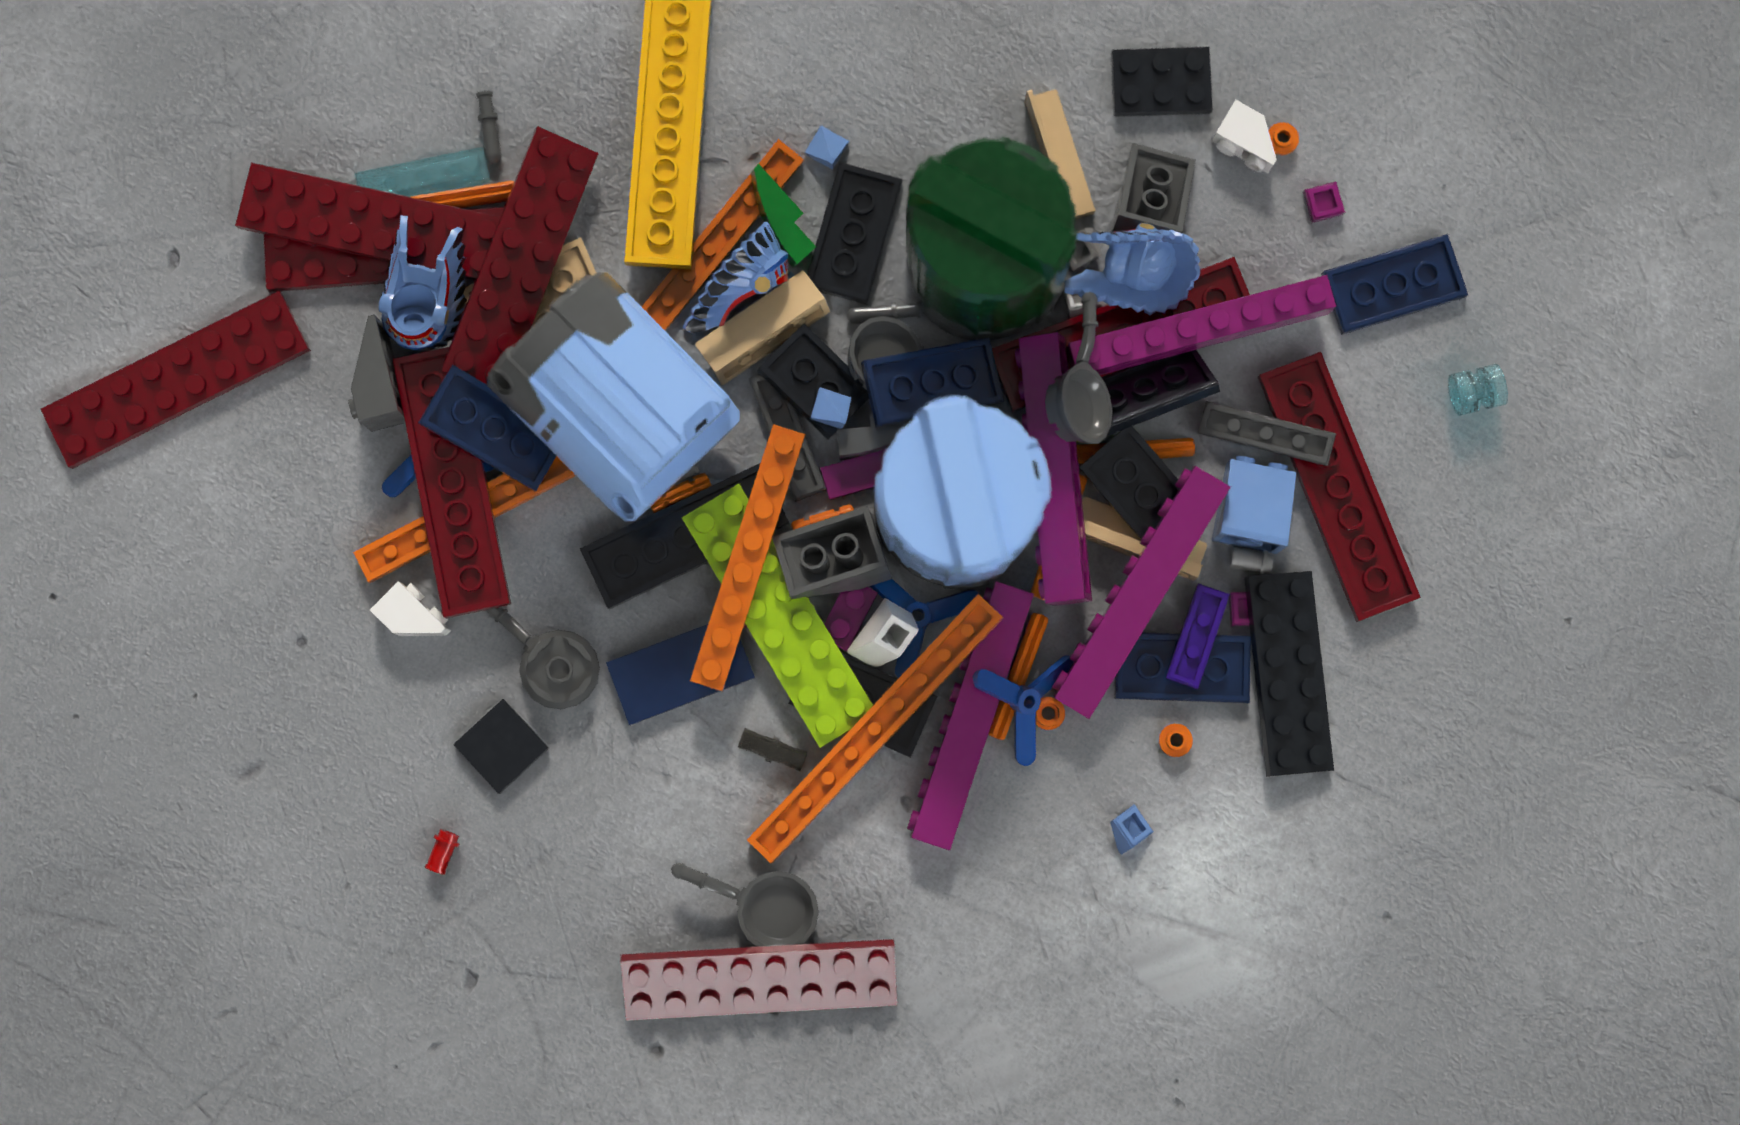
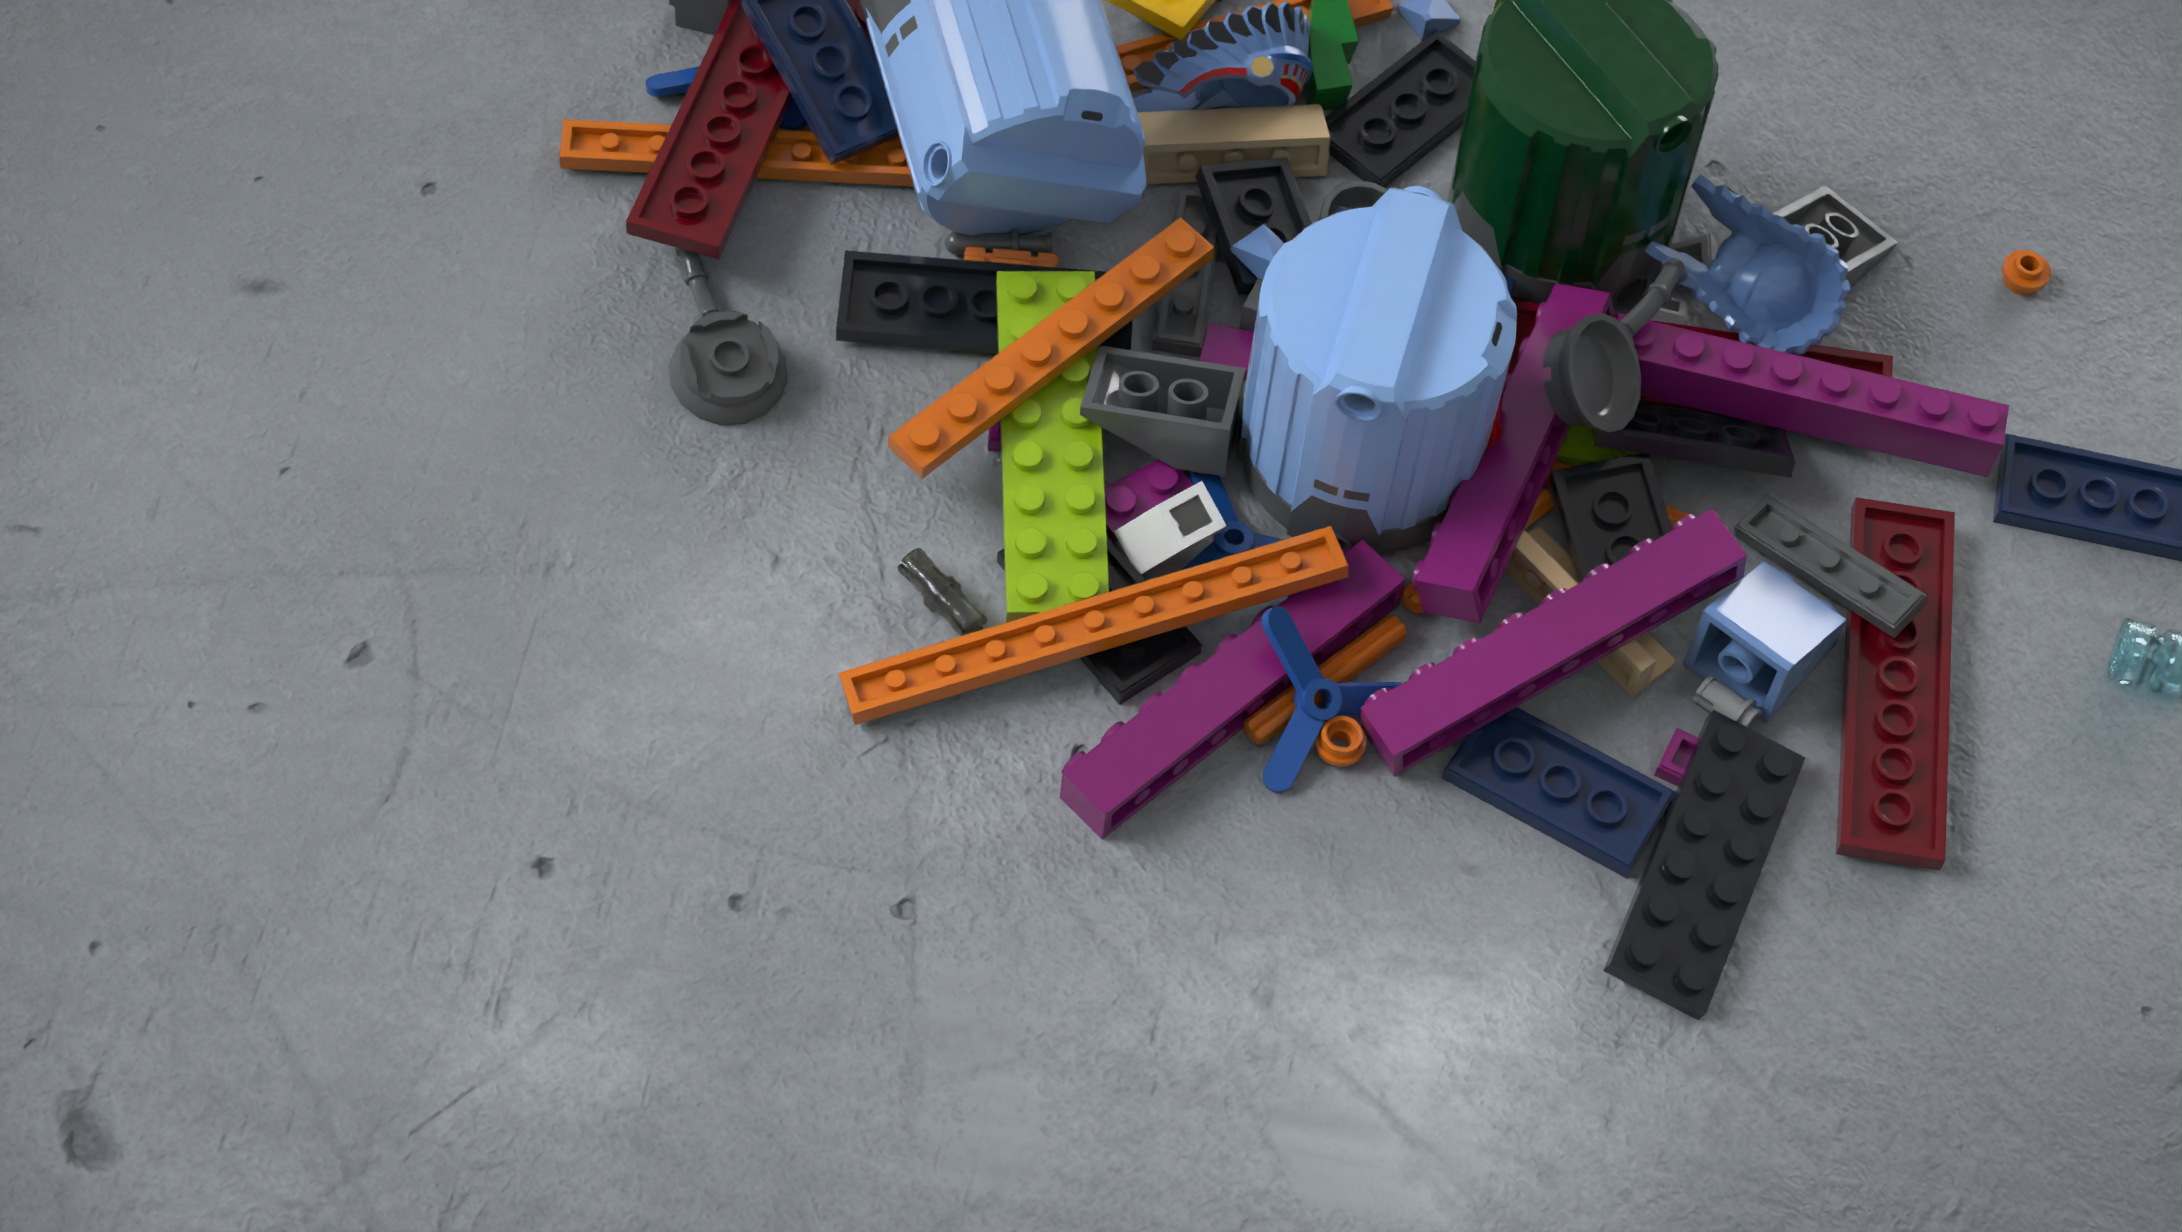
camera: 25 degrees right, 25 degrees down
(406, 614) = (582, 217): white slope -> none
(442, 851) = (436, 486): red pin -> none
(501, 746) = (595, 415): black tile -> none
(660, 676) = (845, 448): dark blue tile -> none
(759, 979) = (746, 843): plate -> none
(771, 909) = (816, 769): dark grey piece -> none
(1058, 146) = (1722, 148): tan panel -> none
(1130, 829) = (1369, 939): medium blue slope -> none
(1161, 81) = (1898, 144): black plate -> none
(1168, 748) = (1496, 875): orange plate -> none
(1197, 636) = (1600, 749): dark purple tile -> none
(1247, 137) = (1977, 241): white slope -> none
(1324, 202) = (2046, 365): magenta tile -> none

